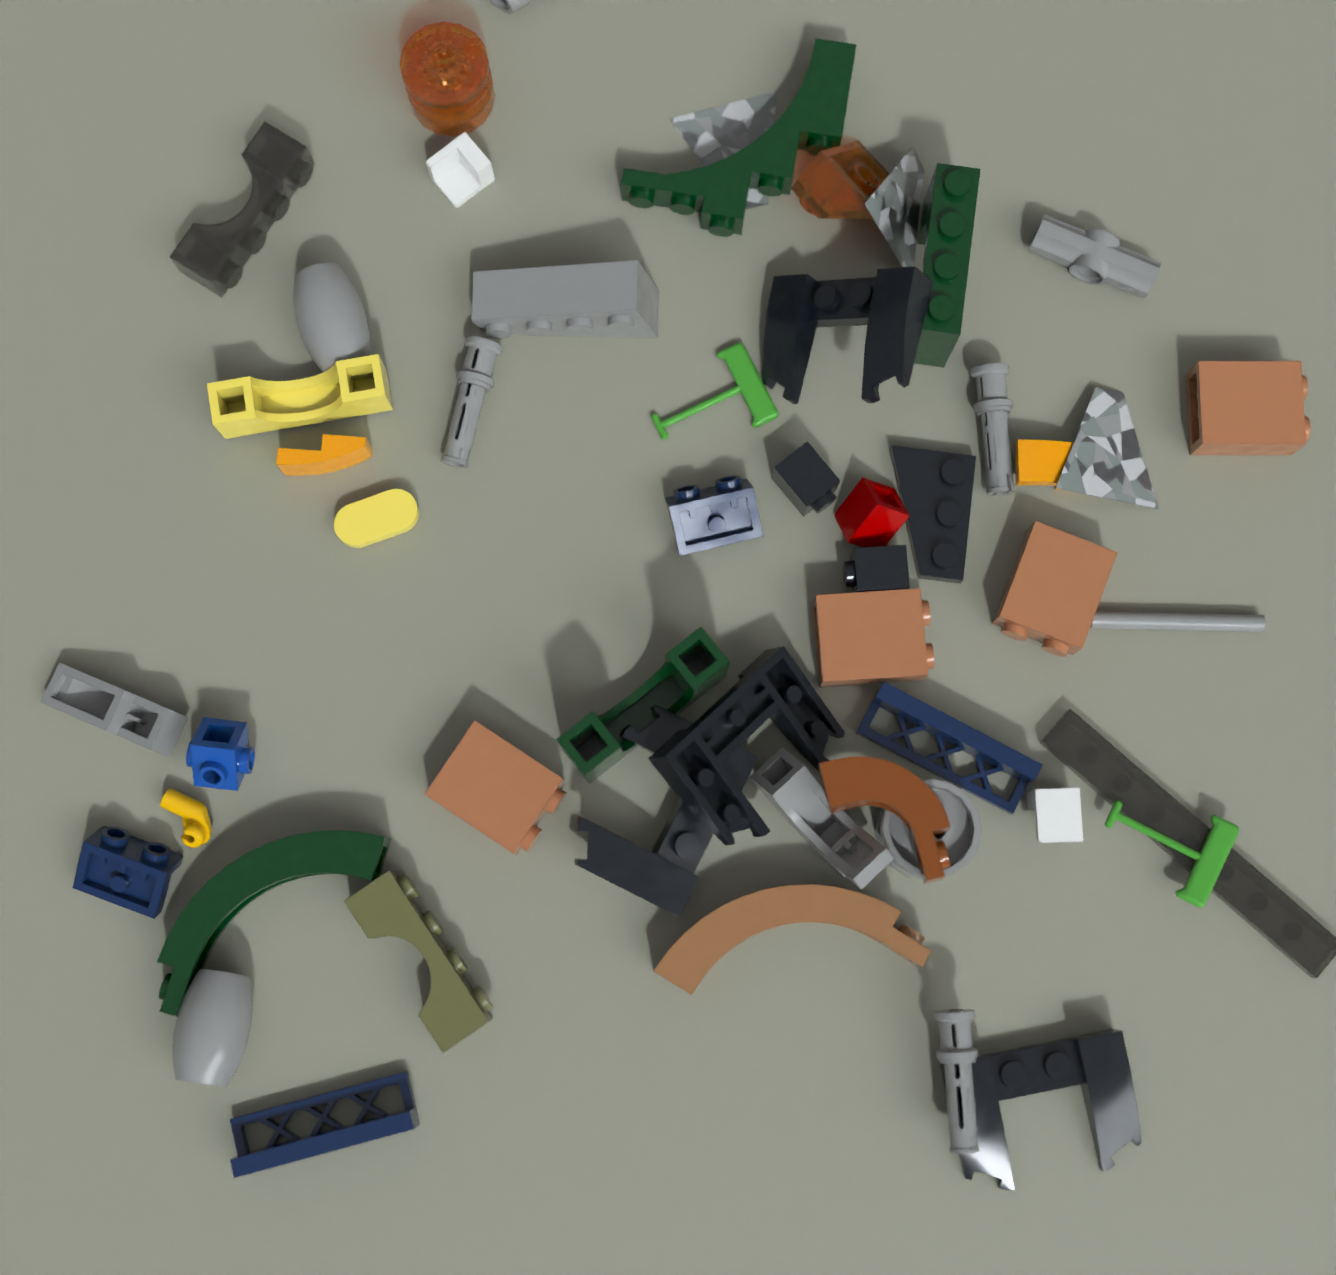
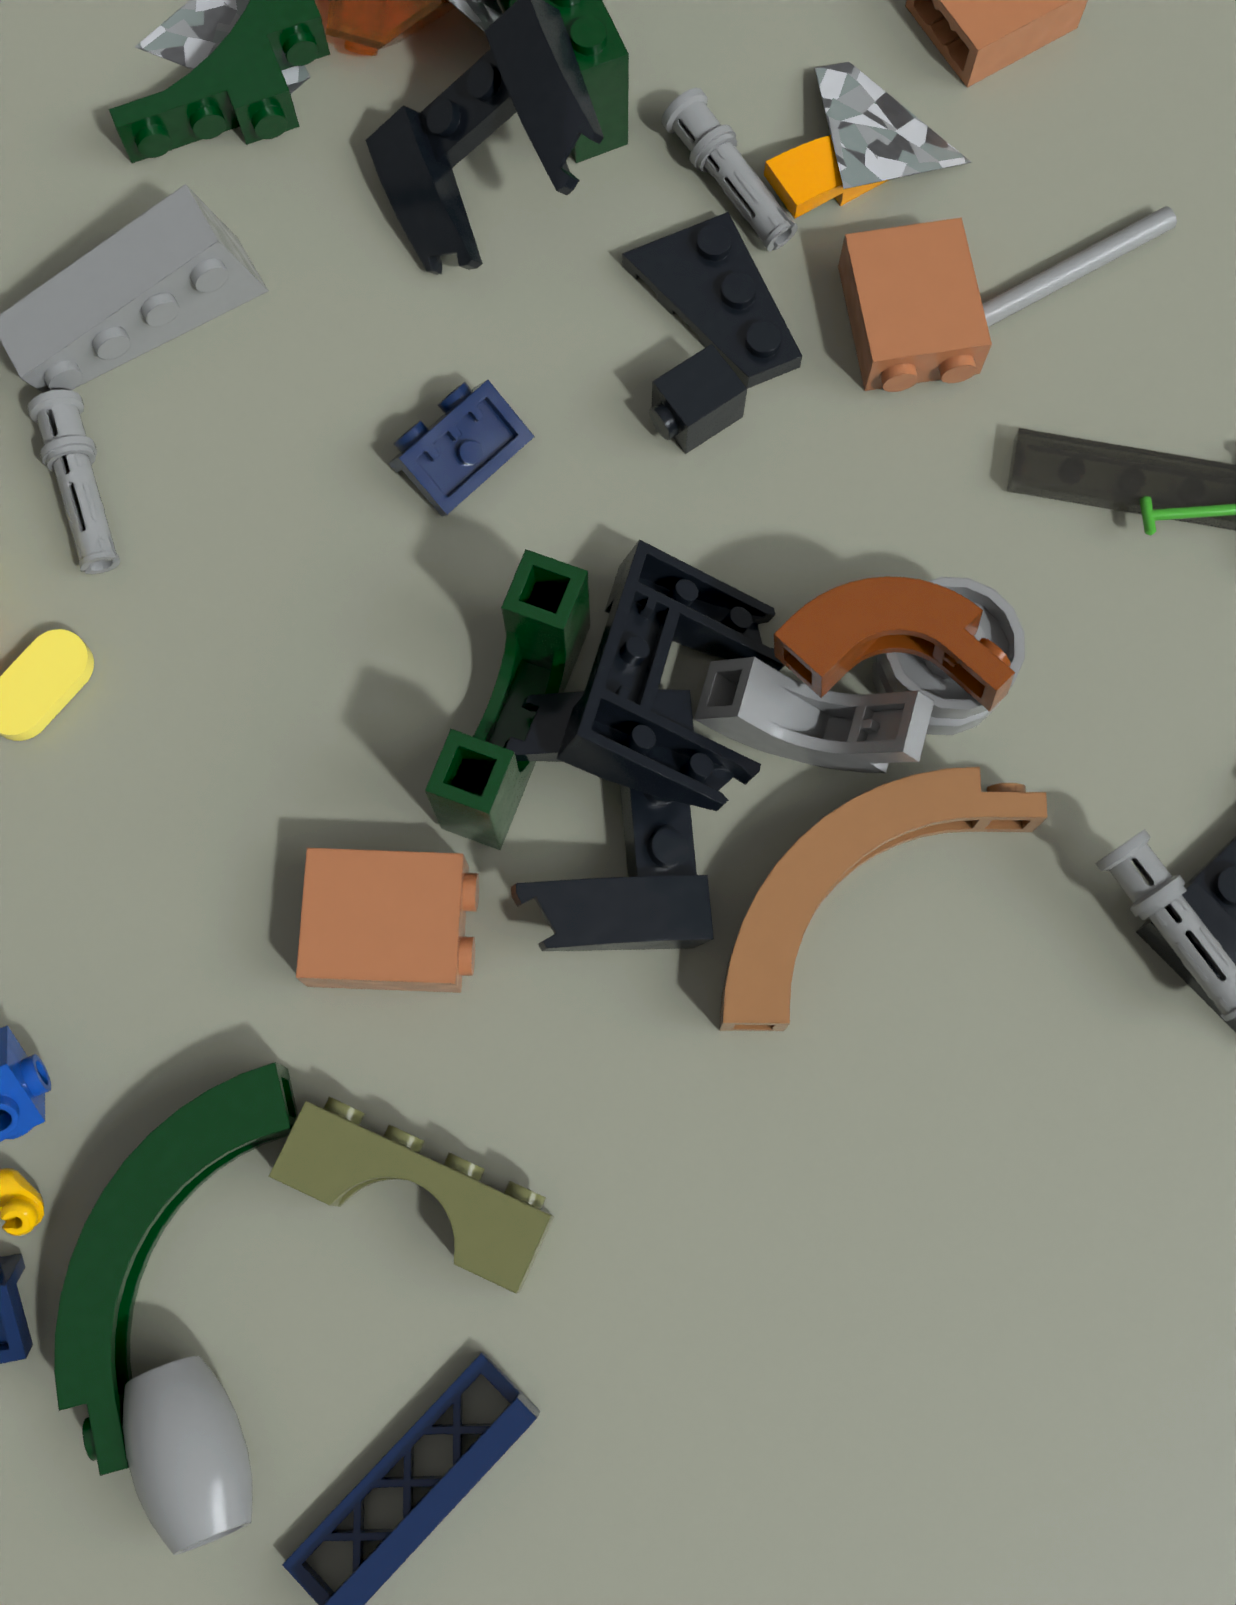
camera: 30 degrees left, 5 degrees down
(747, 382) = (408, 281): bright green piece -> none
(806, 480) = (546, 344): black brick -> none
(871, 514) = (646, 339): red panel -> none
(872, 637) = (736, 478): nougat brick -> none
(955, 733) = (912, 531): dark blue fence -> none
(1056, 814) = (1086, 549): white panel -> none

